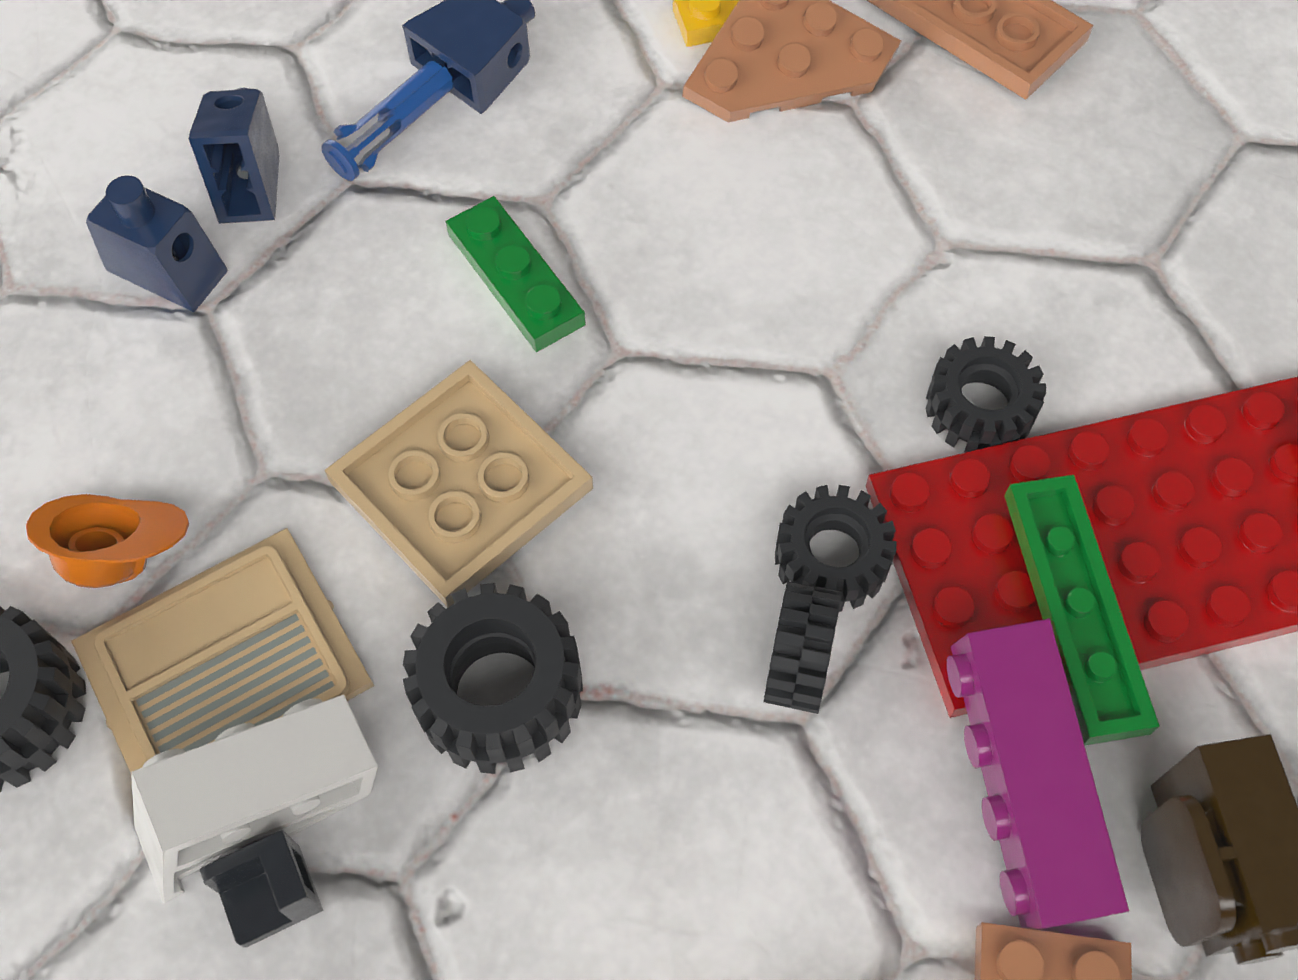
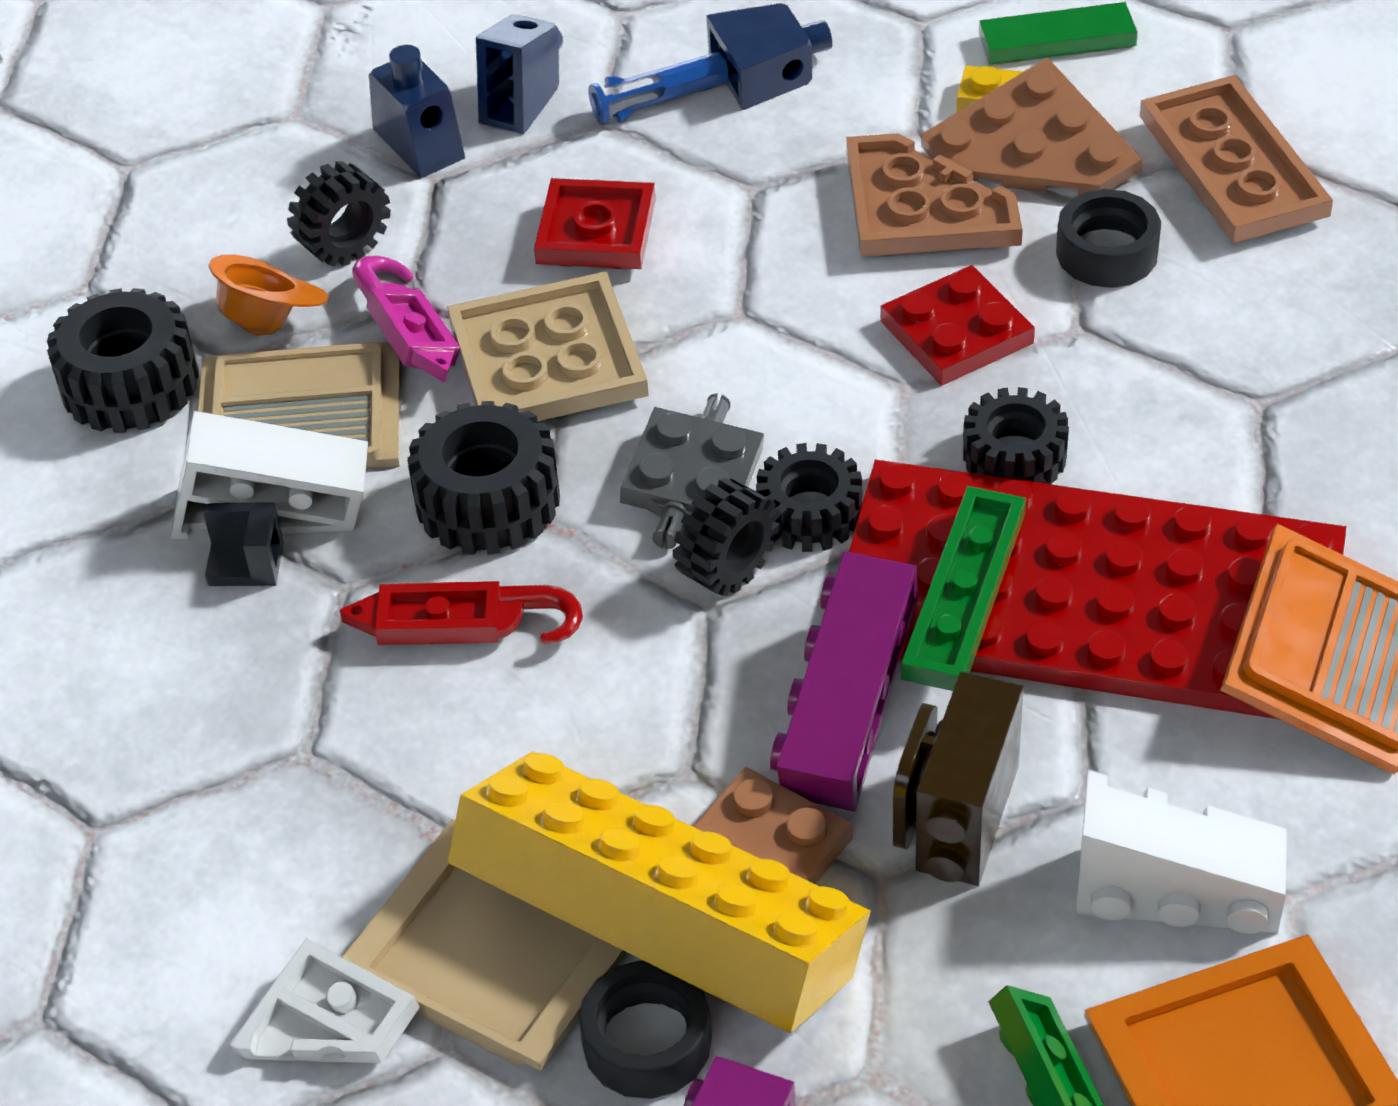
camera: 30 degrees right, 15 degrees down
(139, 403) = (323, 200): none -> black tyre
(286, 502) = (406, 317): none -> dark pink plate
(420, 303) = (595, 223): none -> red plate
(516, 274) = (689, 230): green plate -> none
(560, 864) = (458, 612): none -> red plate
(694, 563) = (682, 458): none -> dark grey plate
(726, 158) = (923, 203): none -> nougat plate
(839, 282) = (957, 324): none -> red plate
(926, 104) = (1102, 264): none -> black tyre

